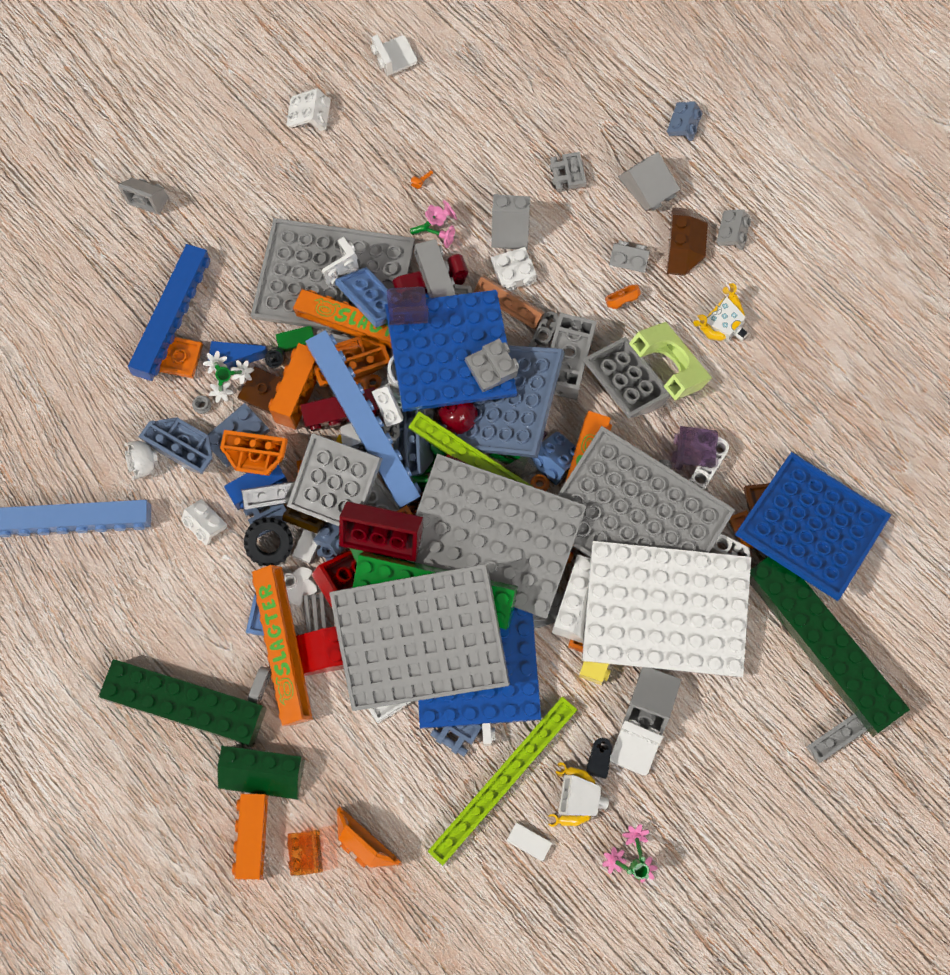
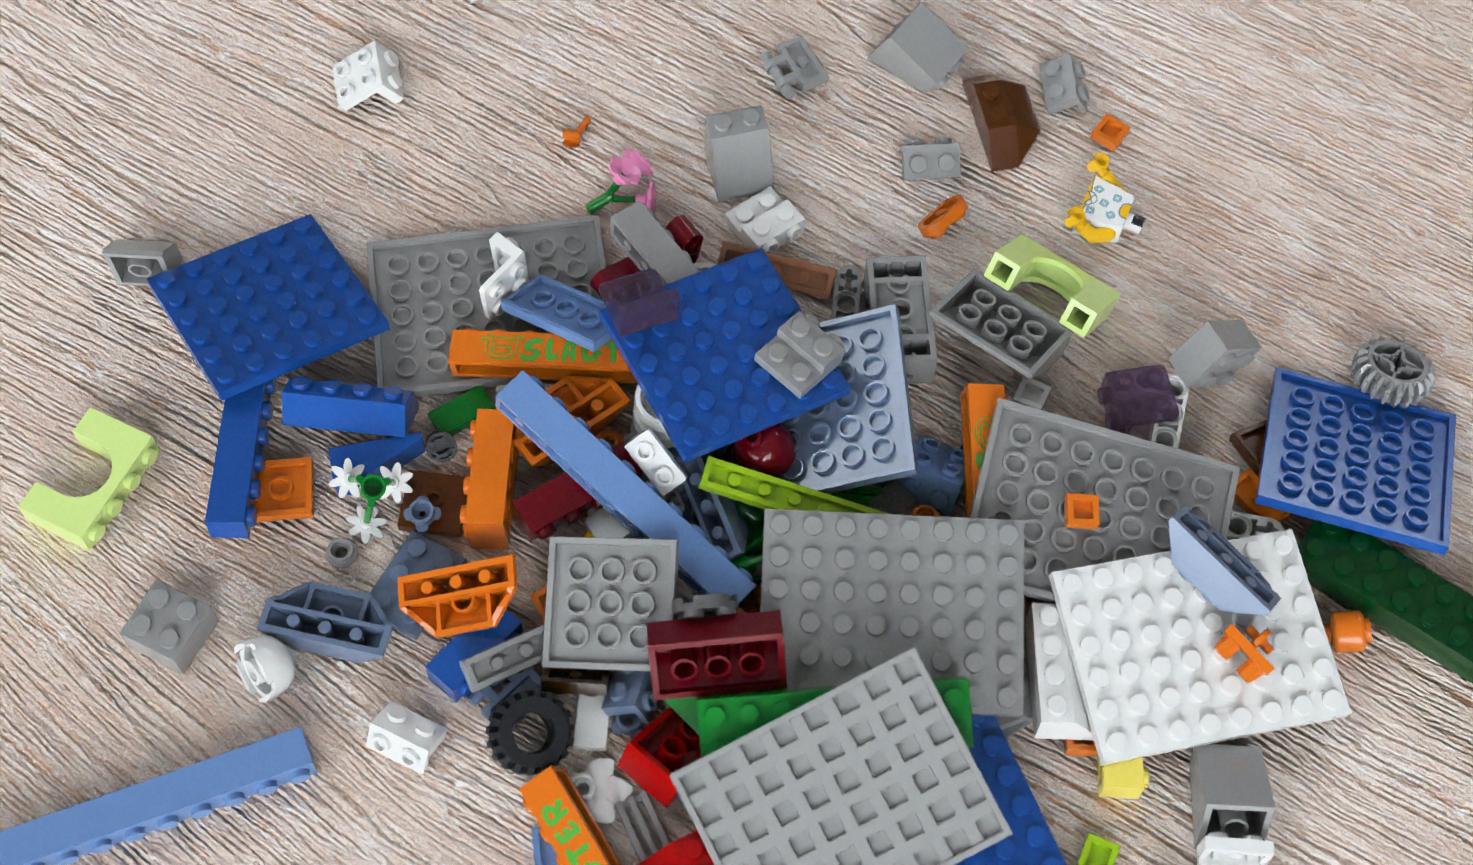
camera: 25 degrees left, 10 degrees down
(69, 342) = (86, 517): none -> yellowish green arch
(94, 420) = (169, 626): none -> light grey brick
(203, 243) = (267, 306): none -> blue plate
(229, 320) = (348, 407): none -> blue slope
(246, 393) = (416, 507): none -> sand blue plate
(378, 499) = (705, 604): none -> flat silver plate
(625, 509) = (1081, 511): none -> orange plate
(632, 426) = (1032, 393): none -> white plate
(691, 567) = (1217, 567): none -> wedge
(692, 631) = (1256, 663): none -> orange hips
(750, 268) = (1110, 132): none -> orange plate
(751, 433) = (1215, 353): none -> light grey brick
(764, 627) = (1348, 631): none -> orange head
(853, 468) = (1393, 372): none -> light grey gear

